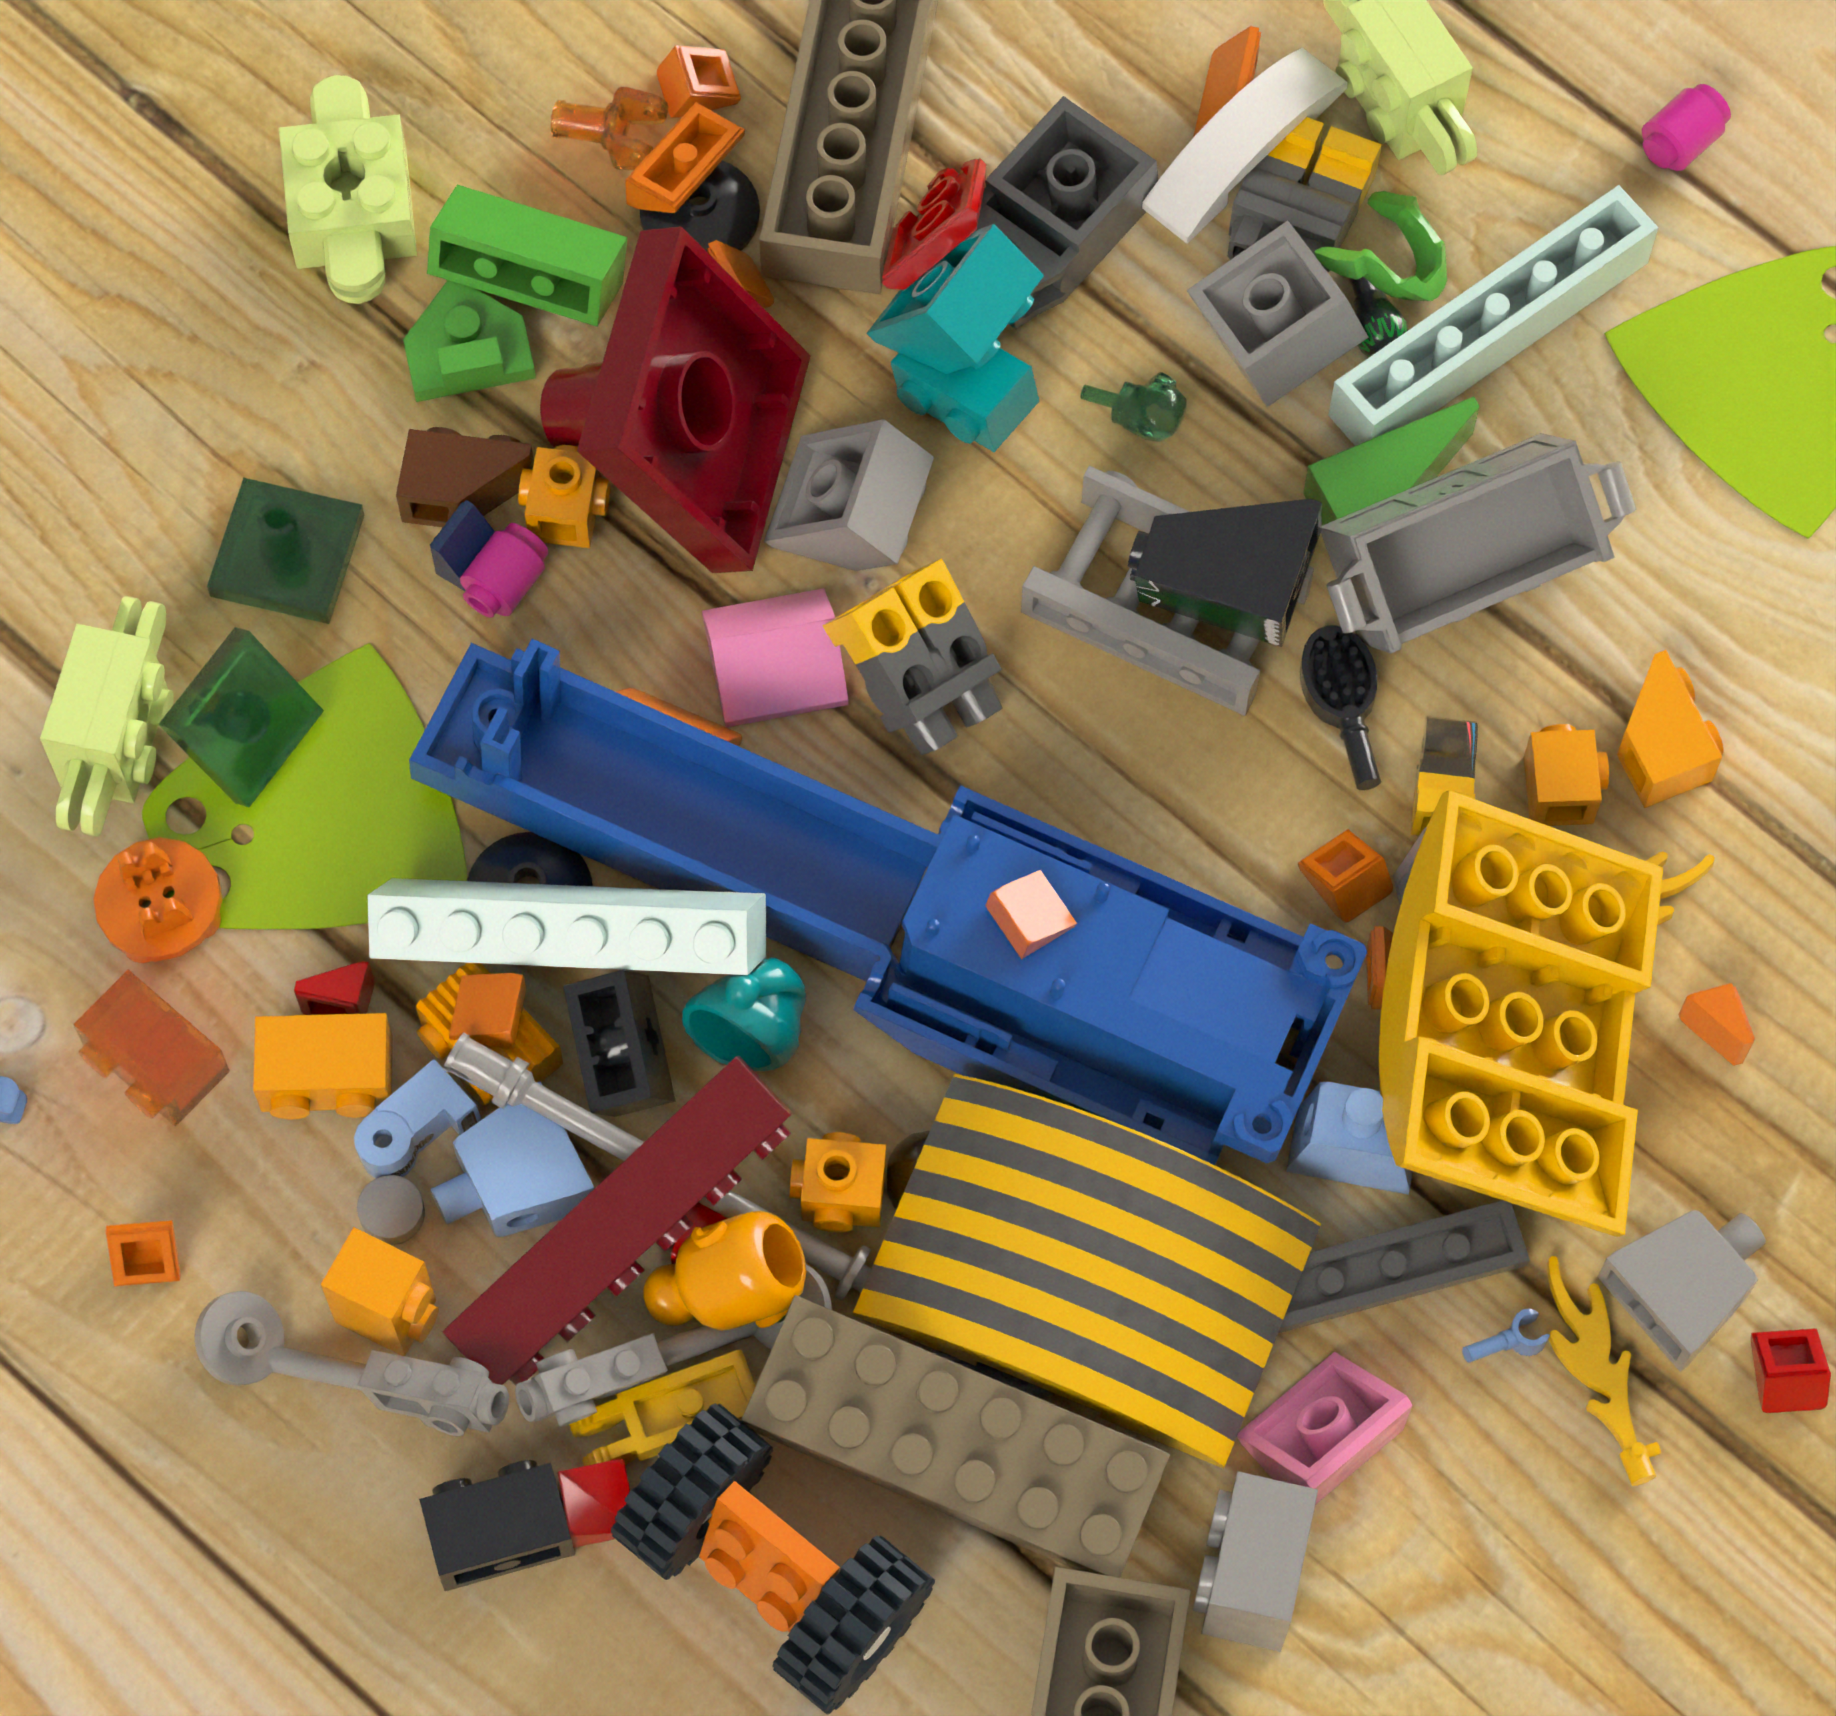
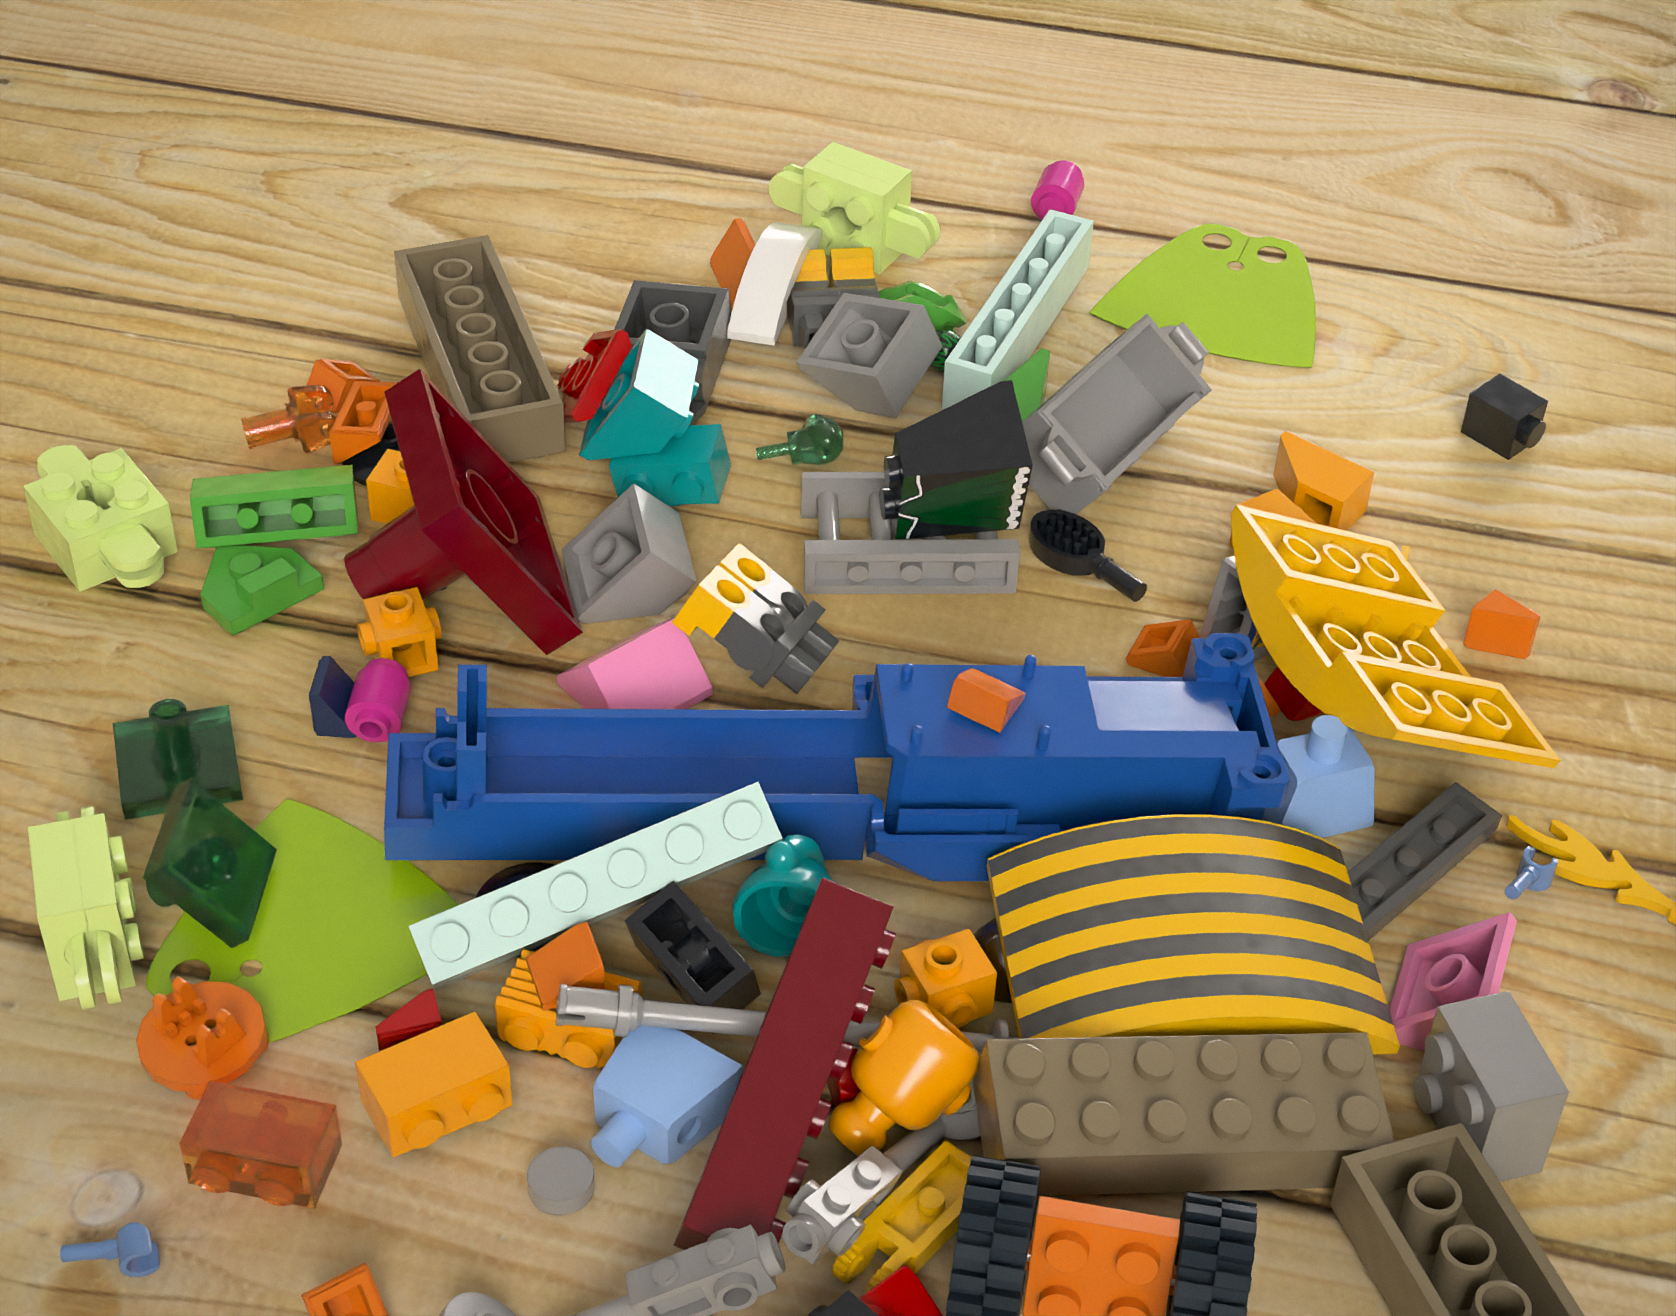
camera: 30 degrees left, 25 degrees down
(380, 1293) = (603, 1224): light orange brick -> none
(412, 1120) = (541, 1095): light blue leg -> none
(449, 468) = (289, 651): reddish brown slope -> none
(1444, 765) = (1186, 562): leg -> none
(1685, 1280) = (1619, 787): light grey torso -> none

